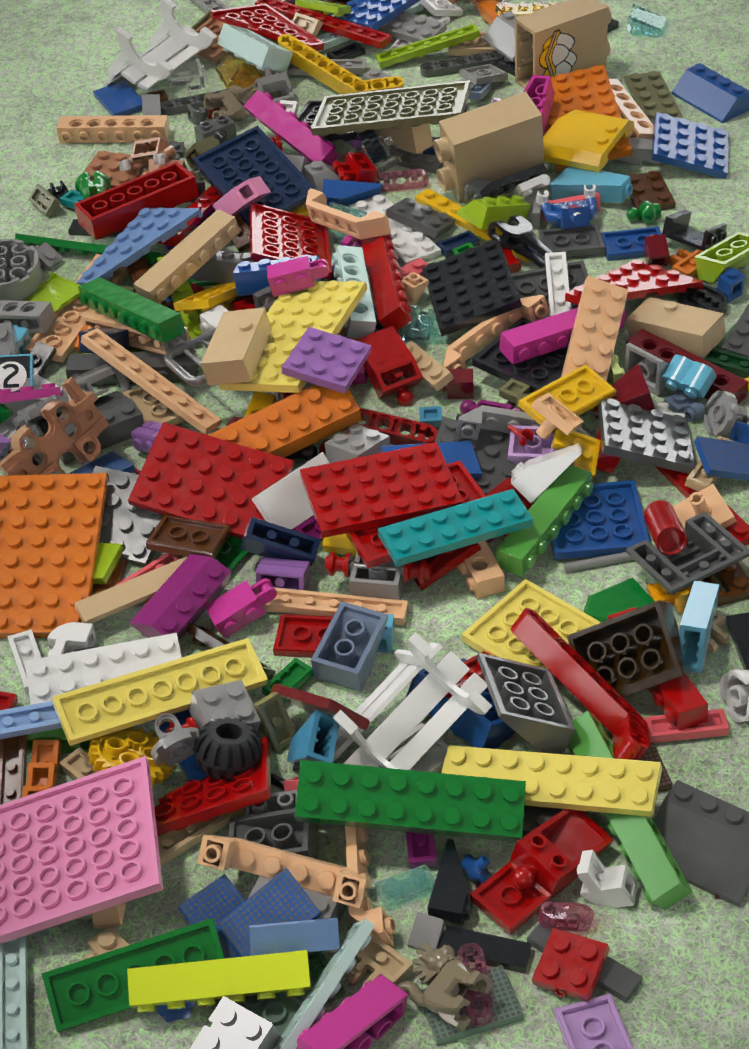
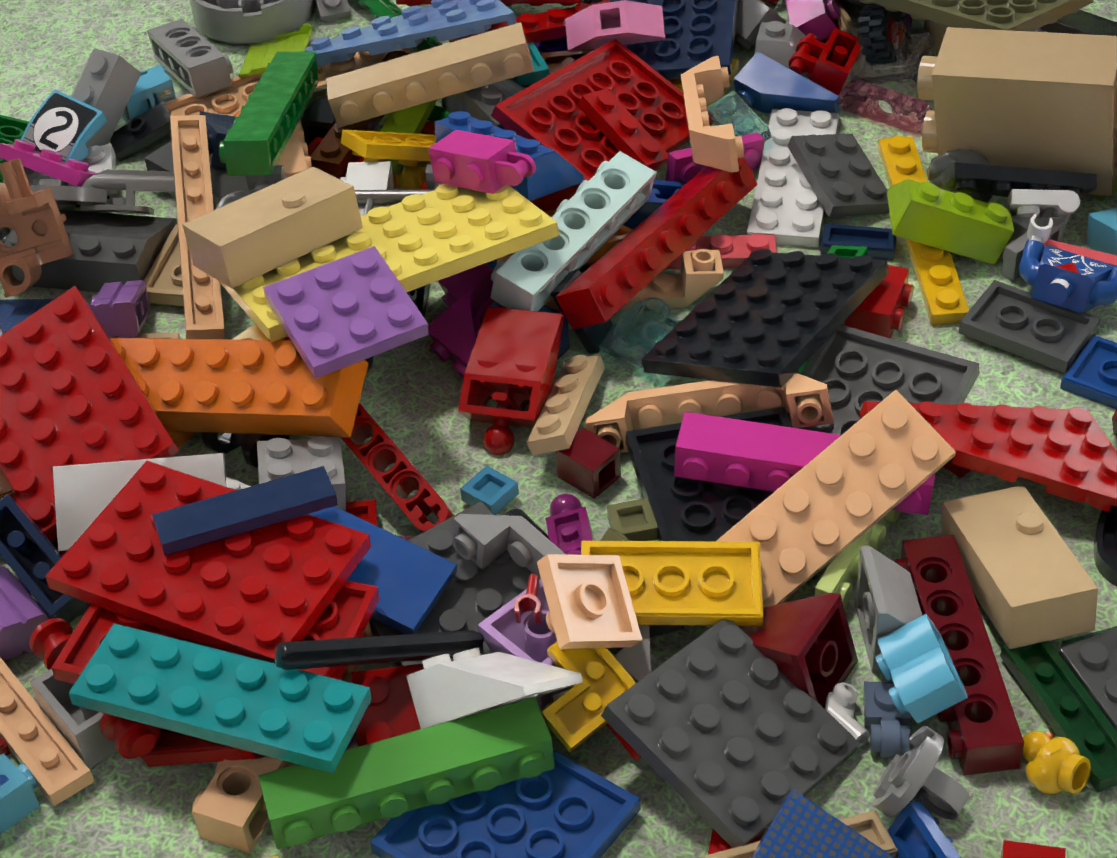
camera: 40 degrees right, 0 degrees up
(308, 240) = (623, 129): none -> red plate
(379, 458) = (244, 510): none -> dark blue tile
(490, 480) = (374, 649): none -> black axle
(520, 239) = (931, 285): black piece -> none
(557, 282) = (898, 370): white plate -> none

